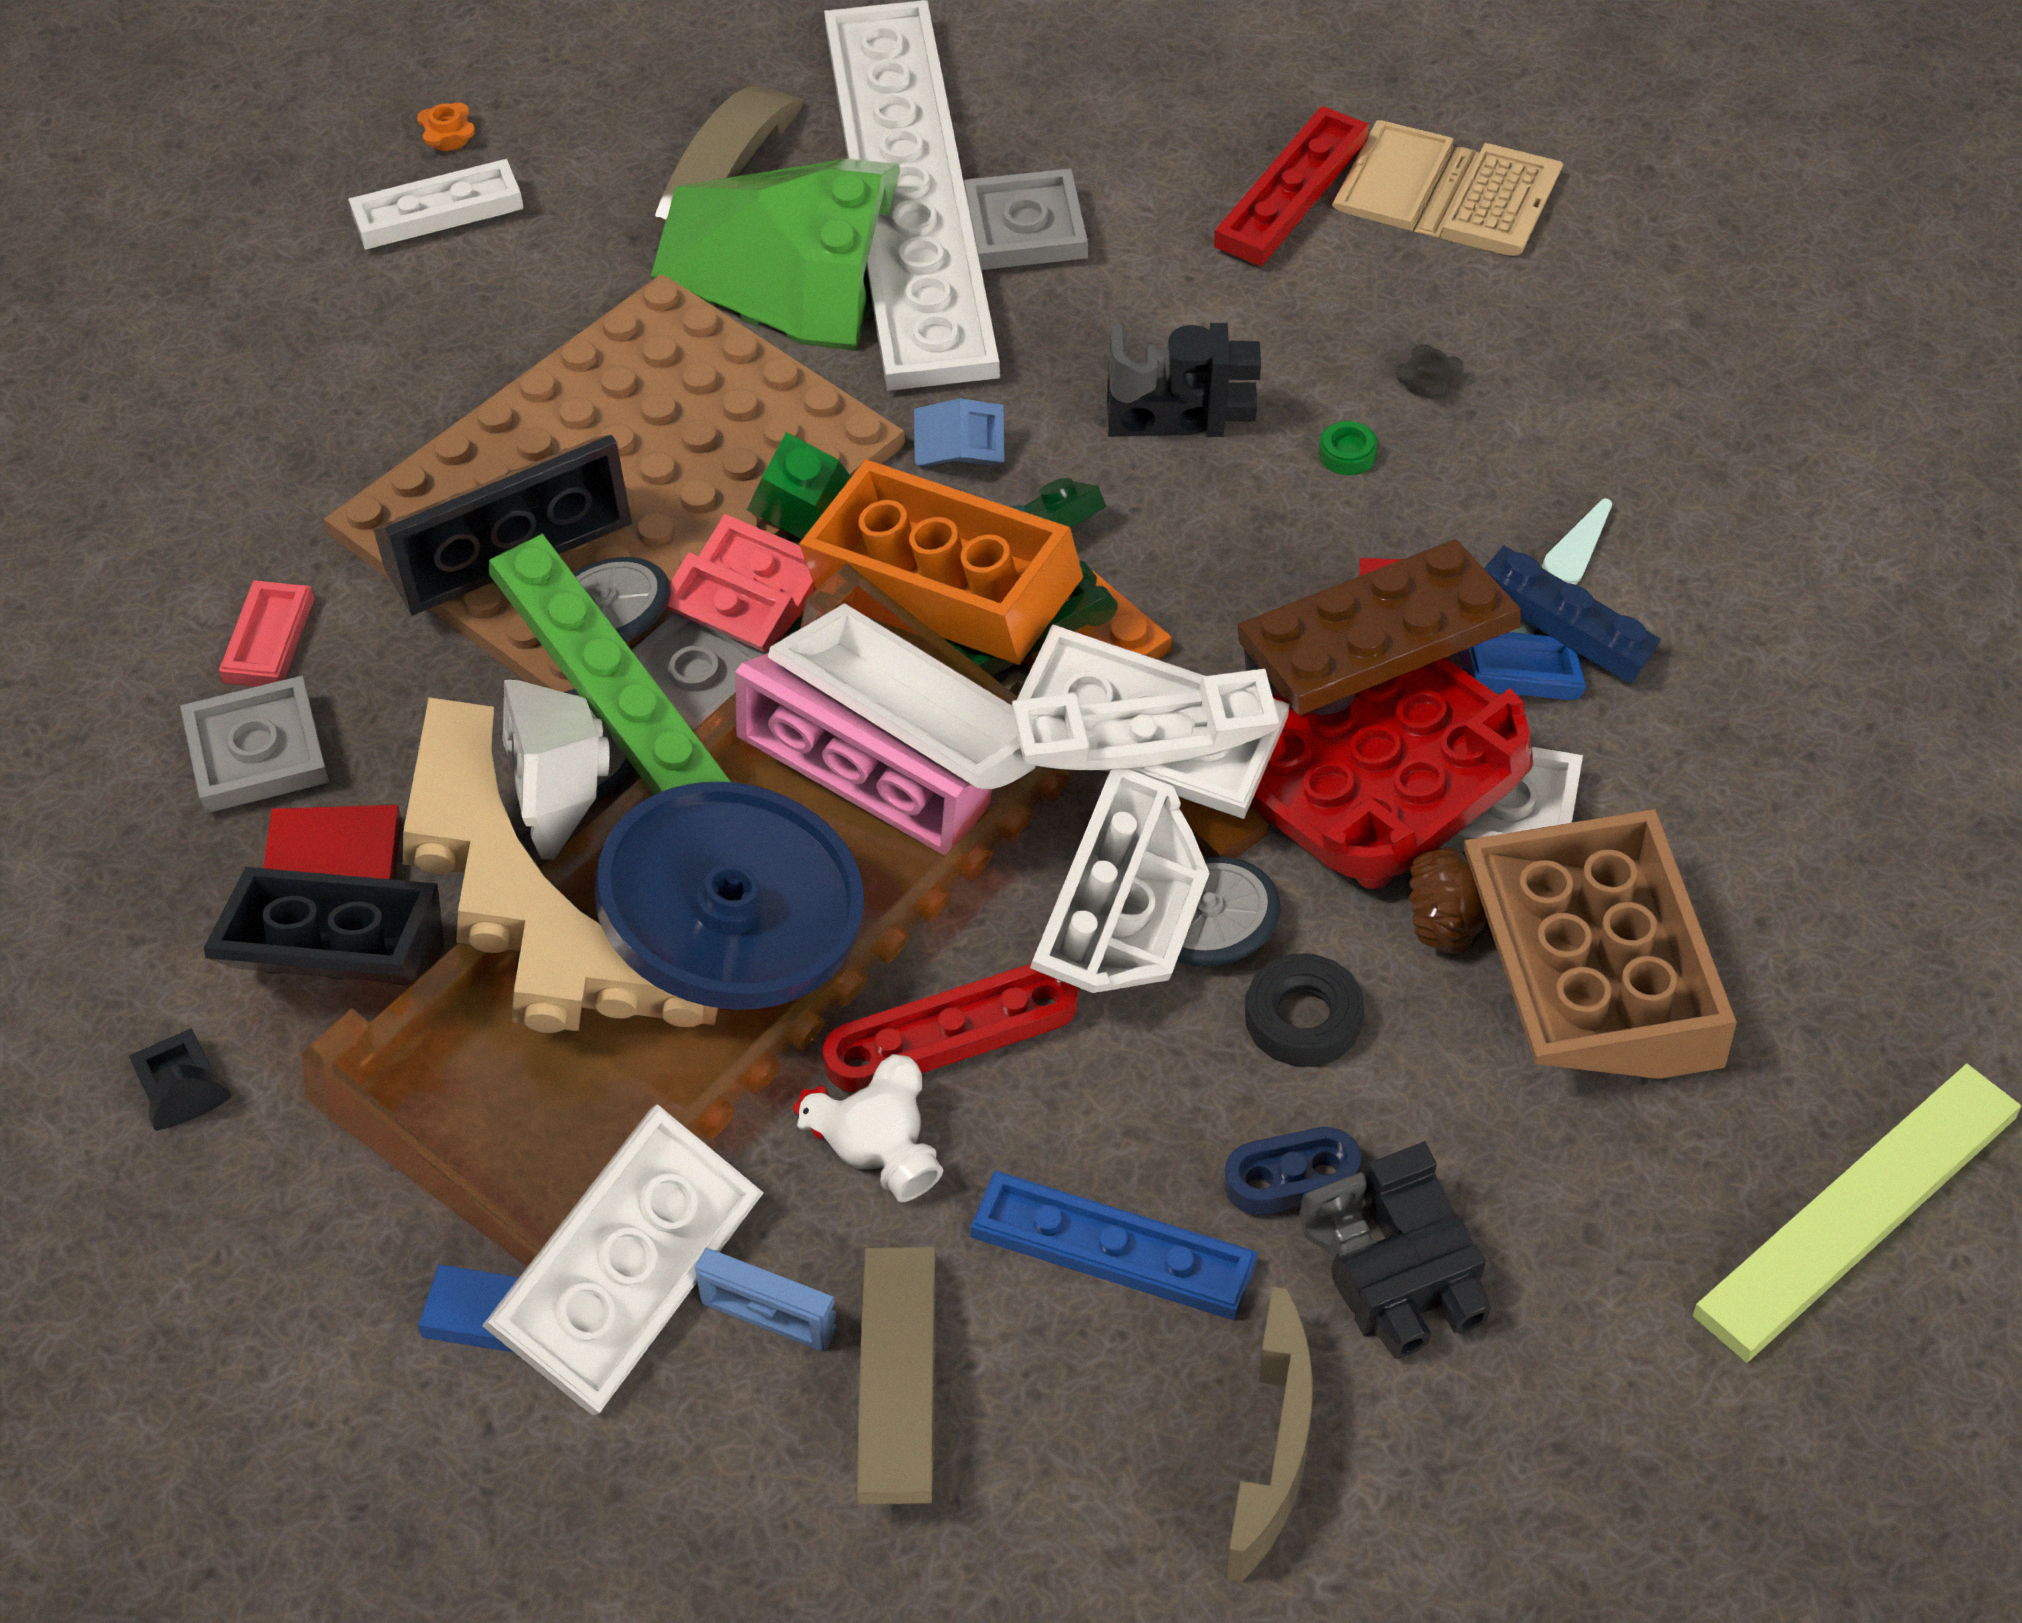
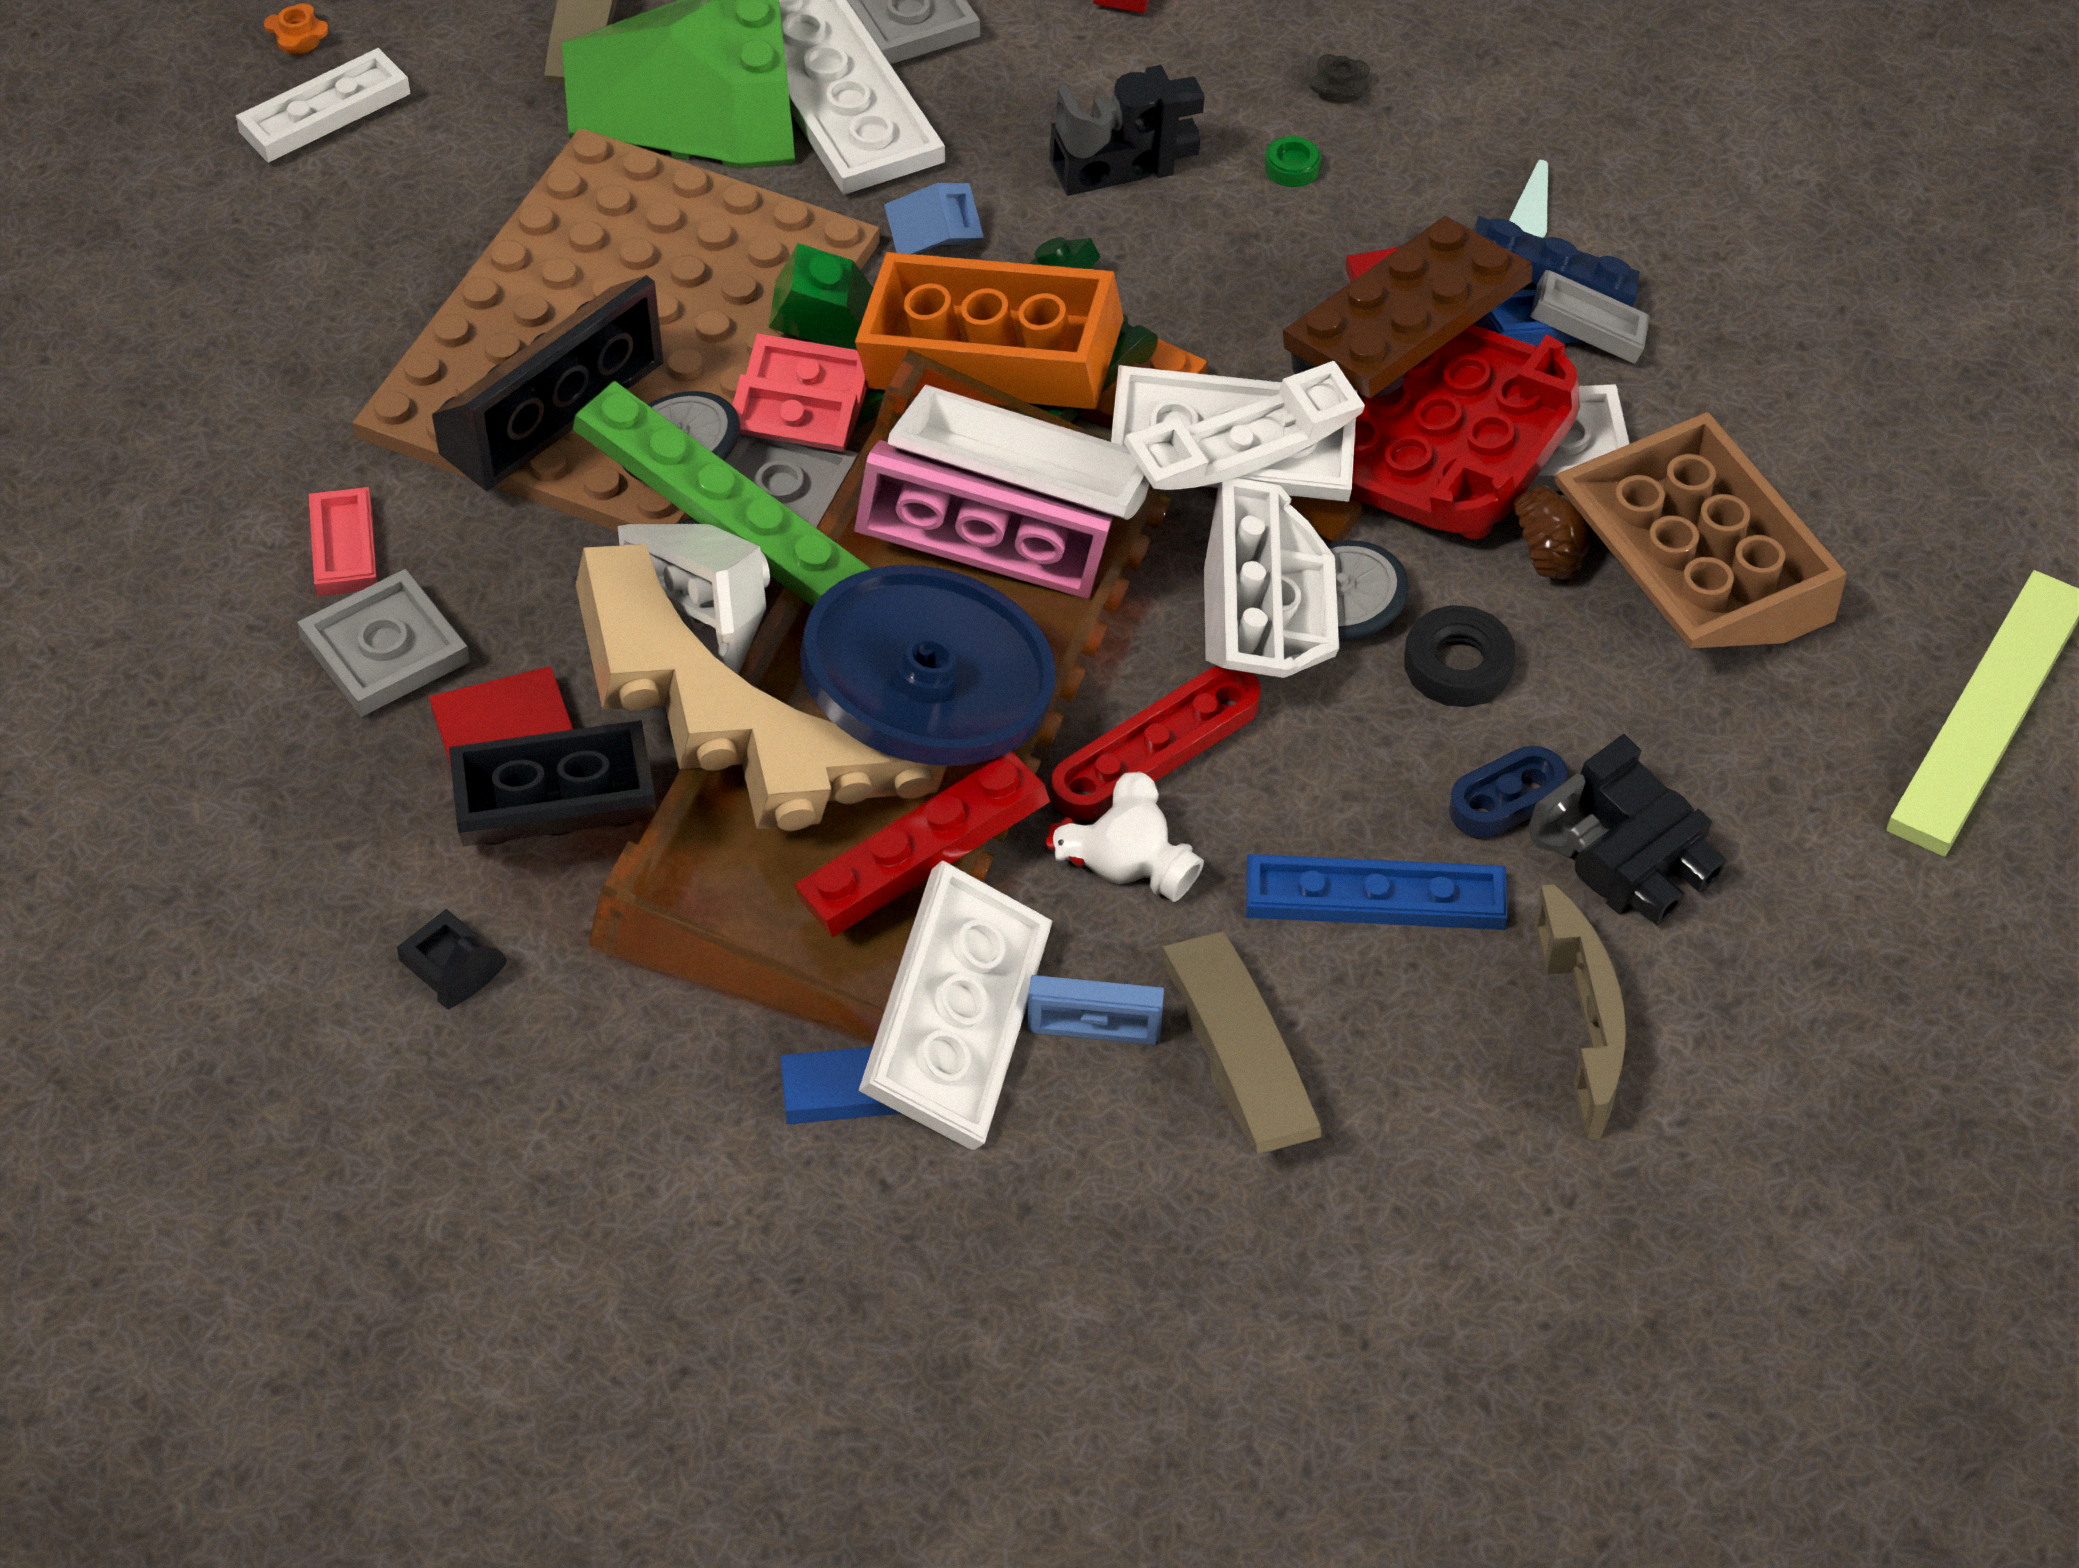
camera: 20 degrees left, 0 degrees up
(660, 1074) = (914, 844): none -> red plate
(1585, 676) = (1590, 316): none -> light grey tile

